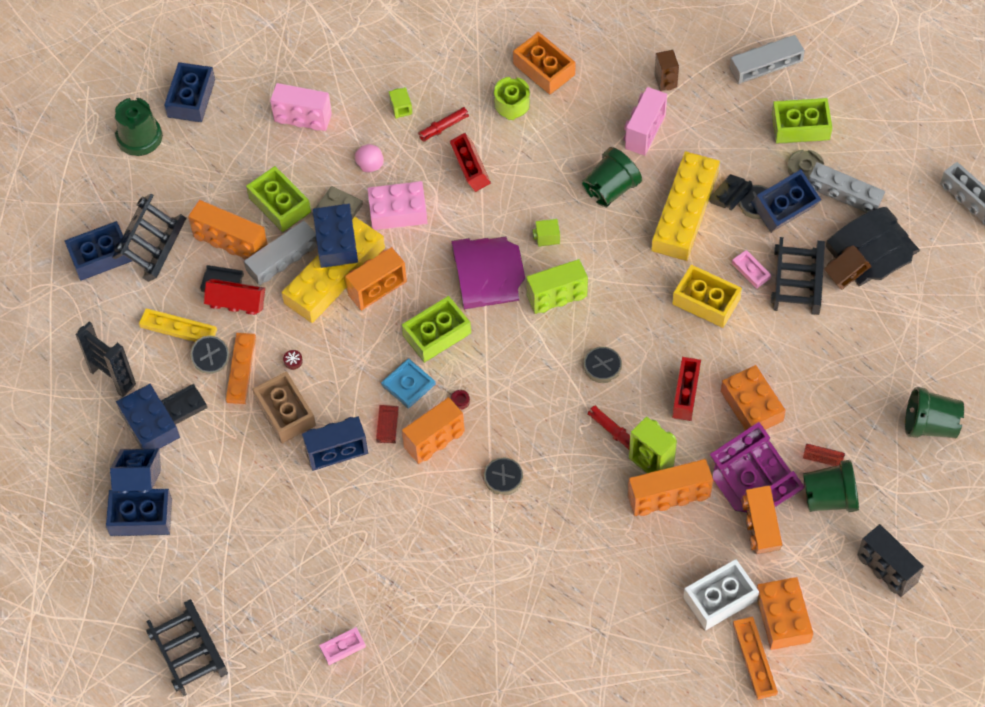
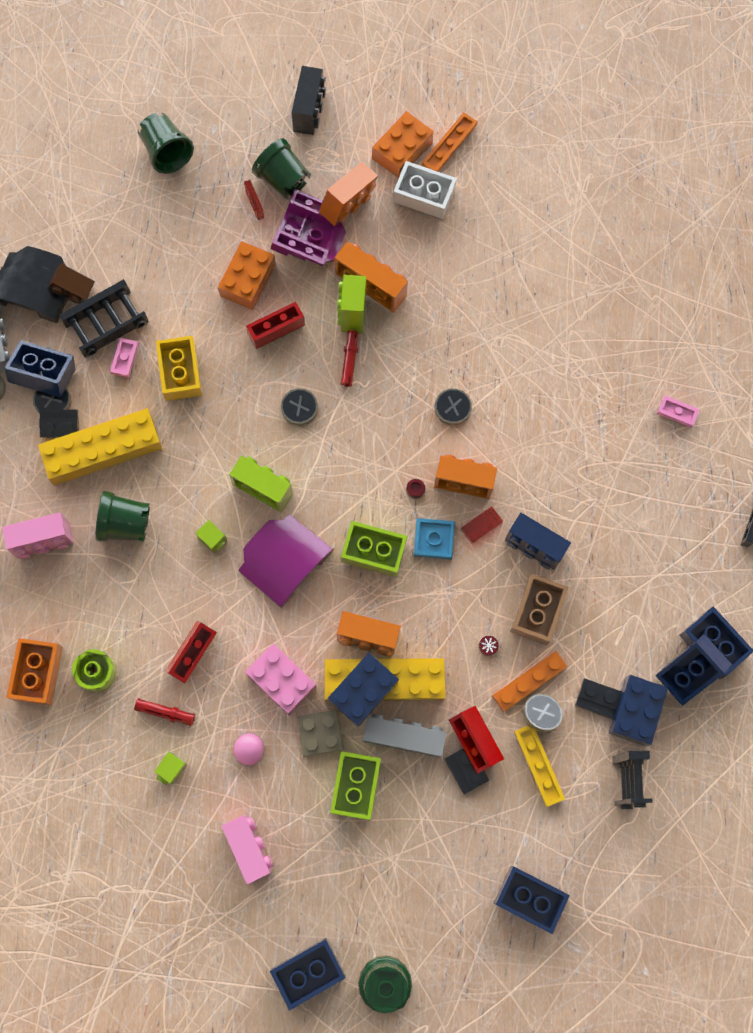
camera: 135 degrees left, 15 degrees up
(166, 239) = (479, 846): black fence -> none
(226, 230) = (423, 798): orange brick -> none

